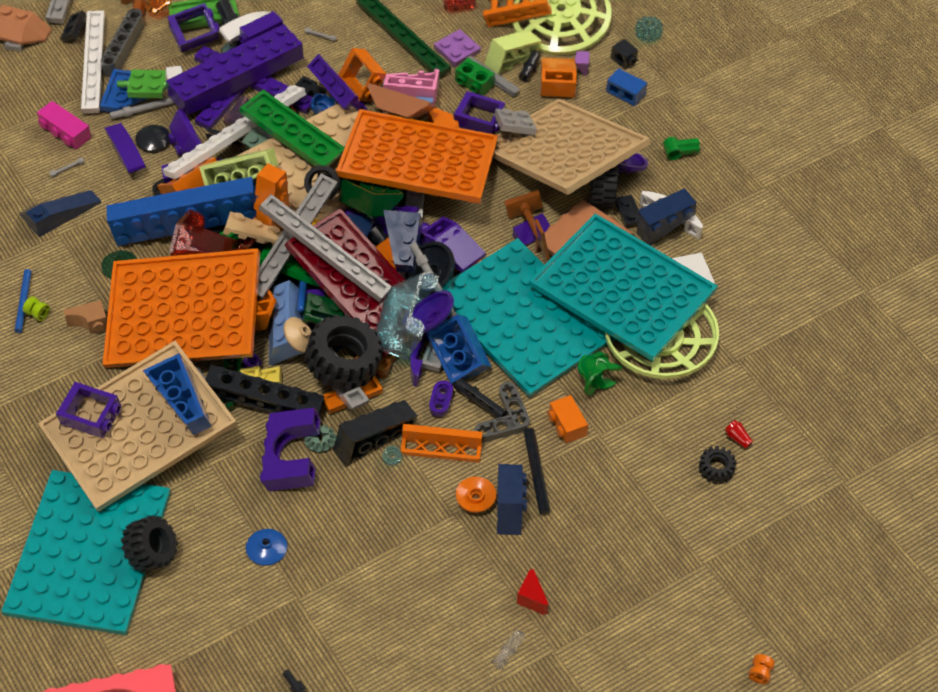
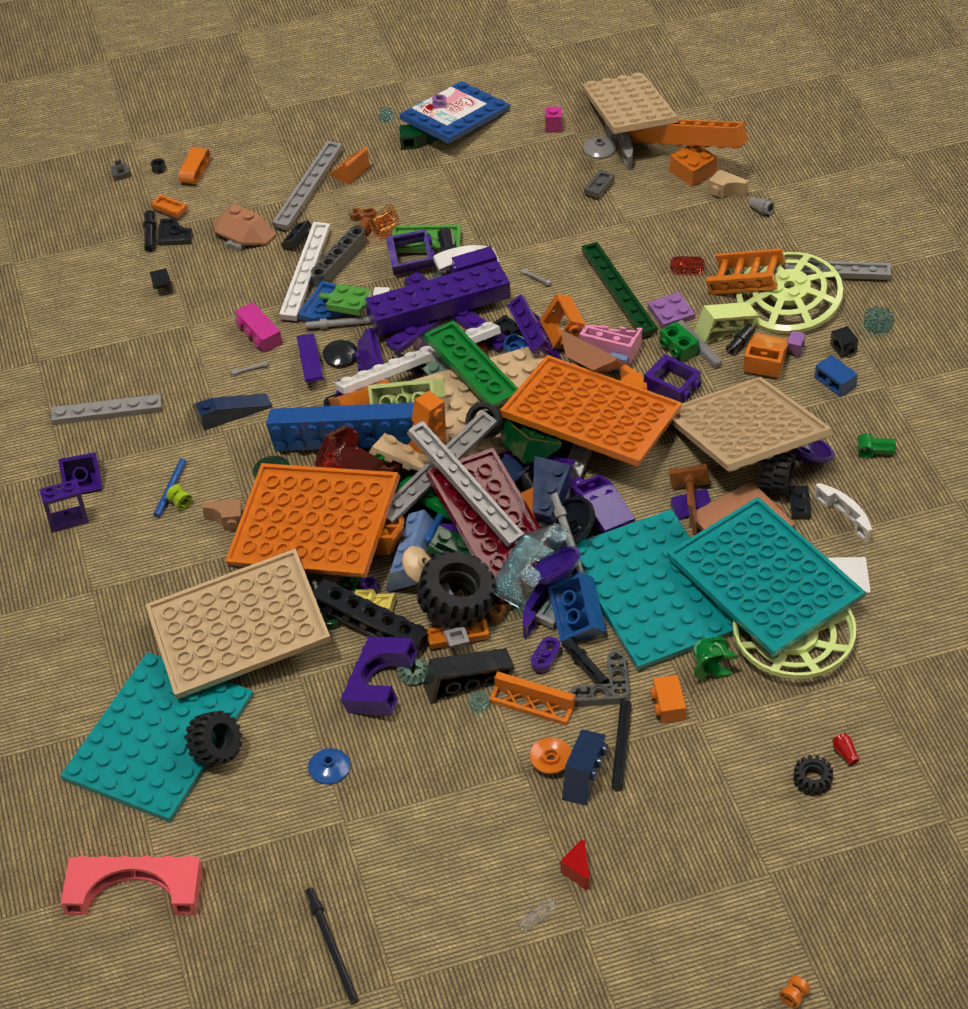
camera: 20 degrees right, 5 degrees down
(72, 402) = (182, 588): dark purple window -> none
(178, 389) = (283, 597): blue wedge -> none
(515, 121) = (704, 392): light grey plate -> none
(664, 215) = (832, 511): dark blue wedge -> none

